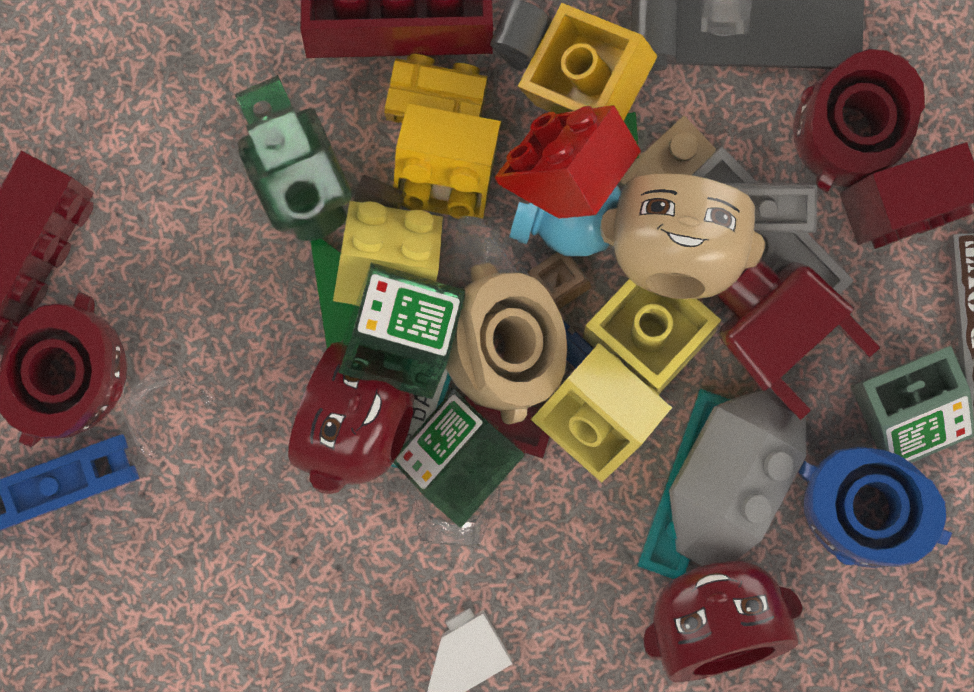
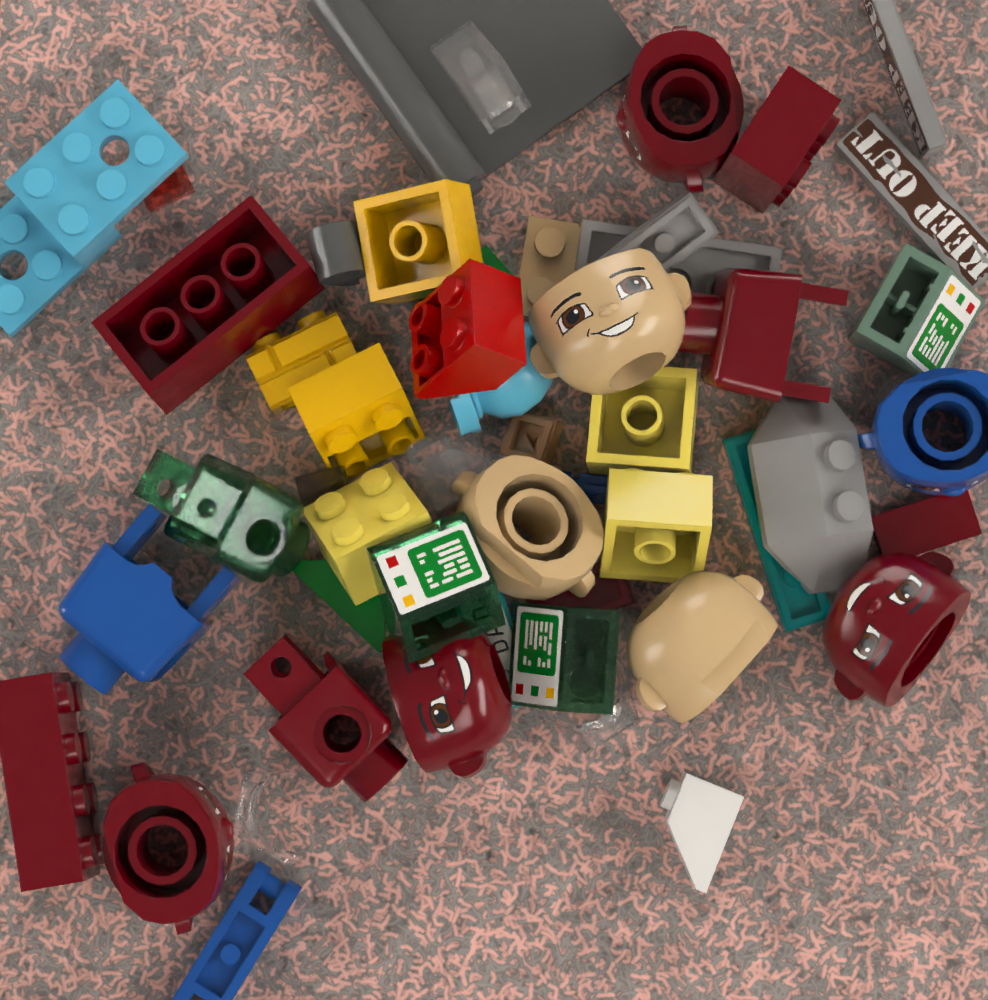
camera: 35 degrees left, 0 degrees up
(167, 180) = (130, 613): none -> blue piece
(240, 344) = (308, 701): none -> dark red piece
(565, 522) = (697, 641): none -> tan piece
(803, 567) = (926, 525): none -> dark red tile

